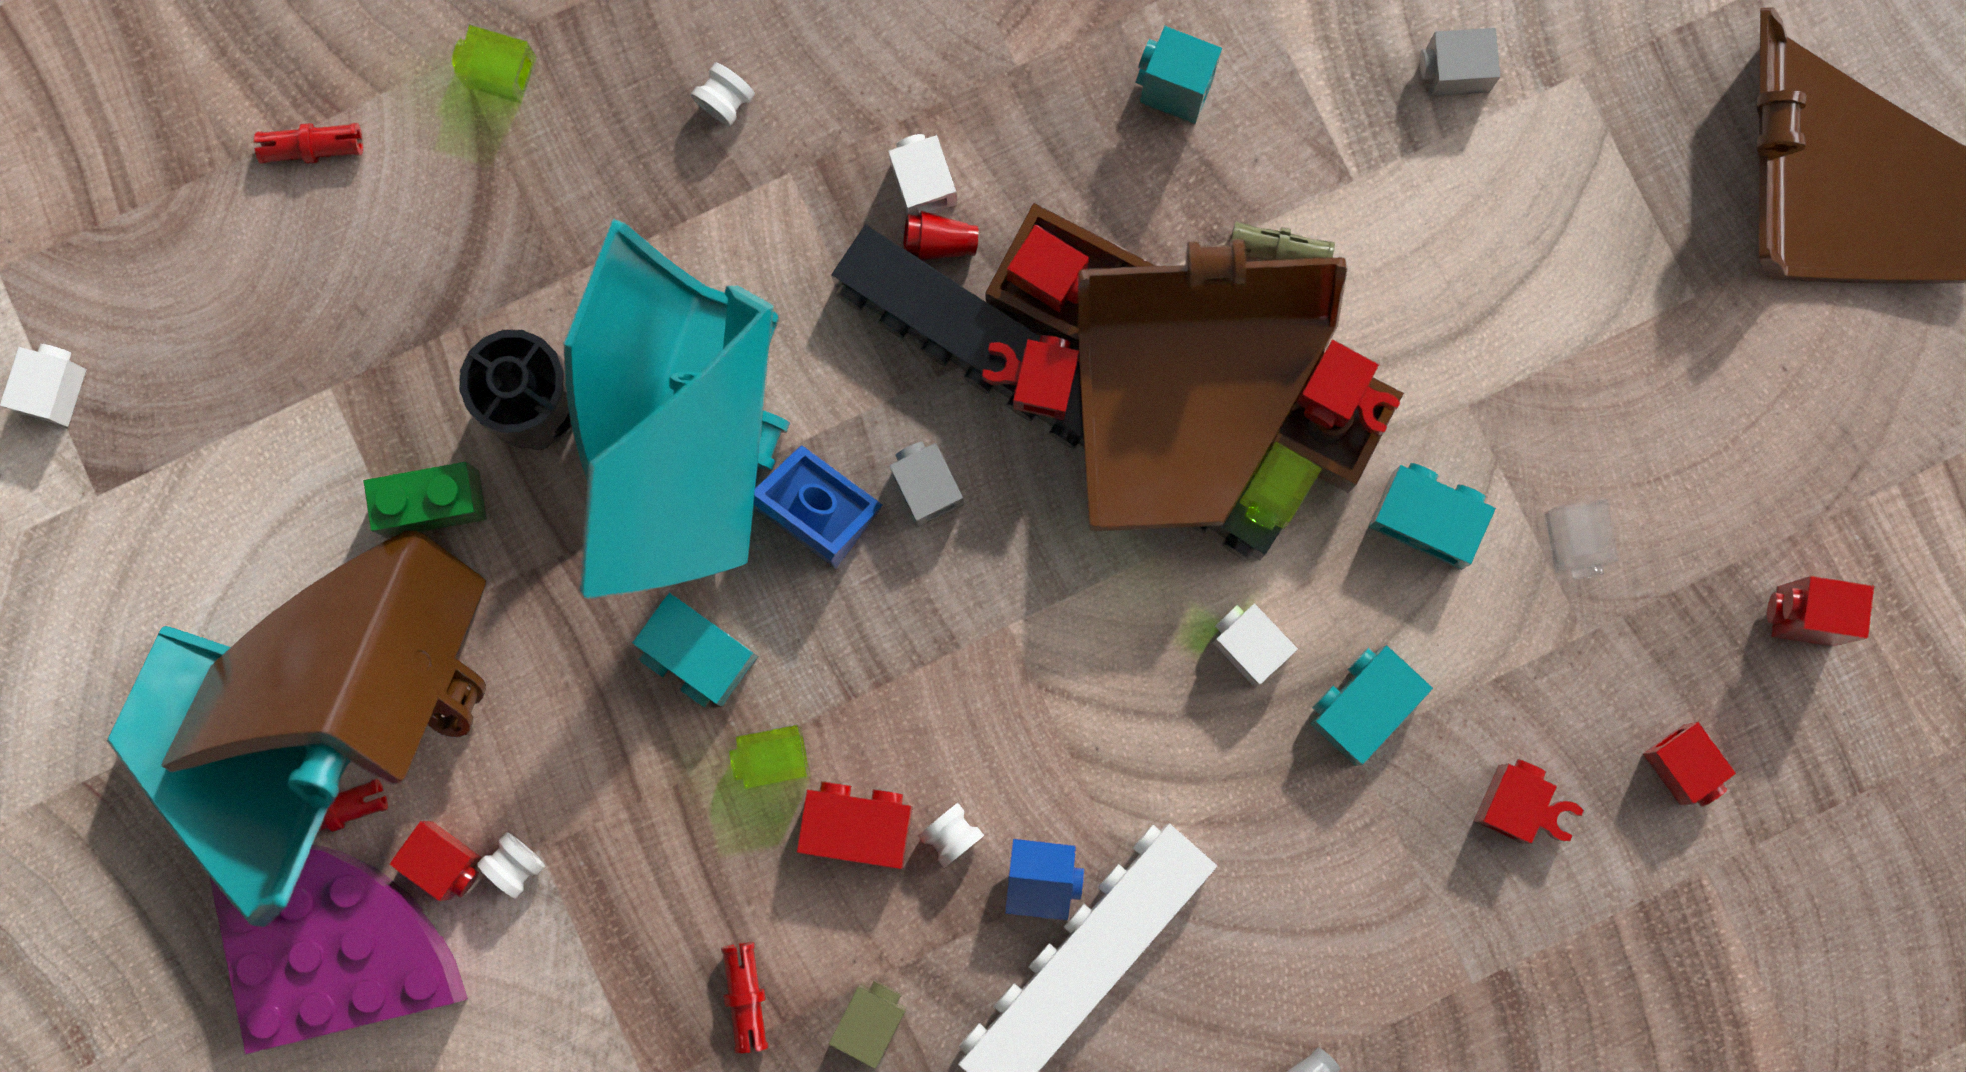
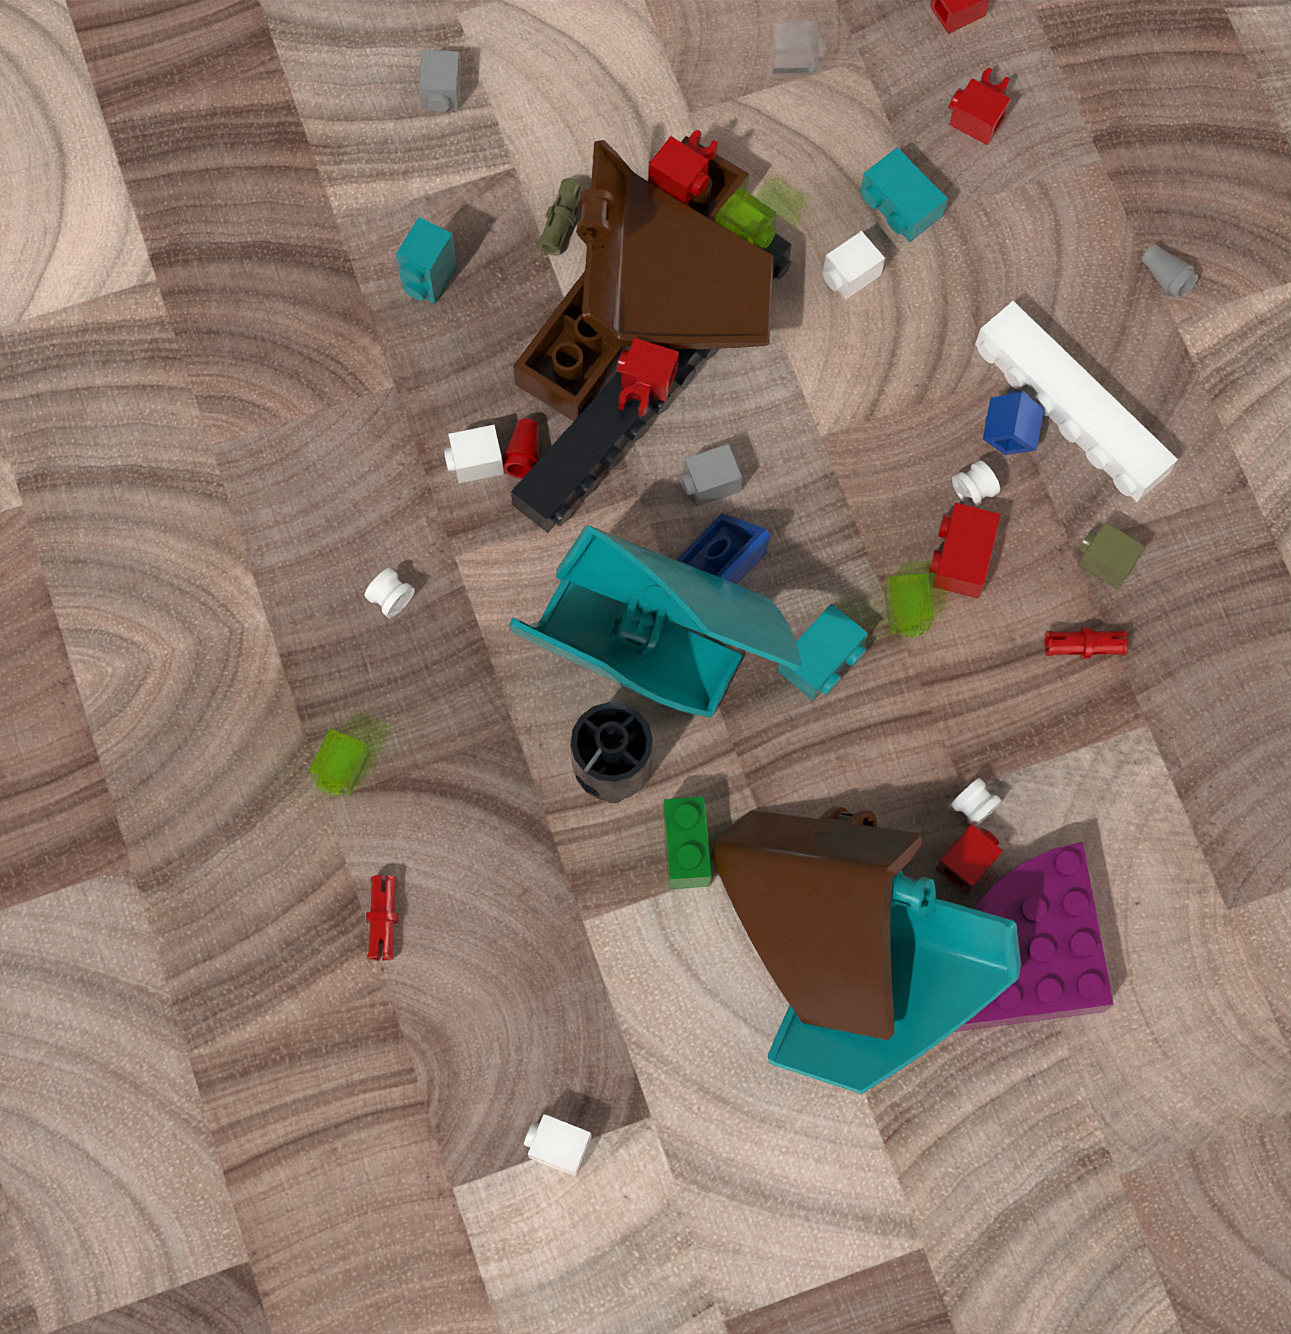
camera: 90 degrees left, 10 degrees down
(1047, 269) = (569, 353): red brick -> none
(1432, 515) = (771, 138): teal brick -> none

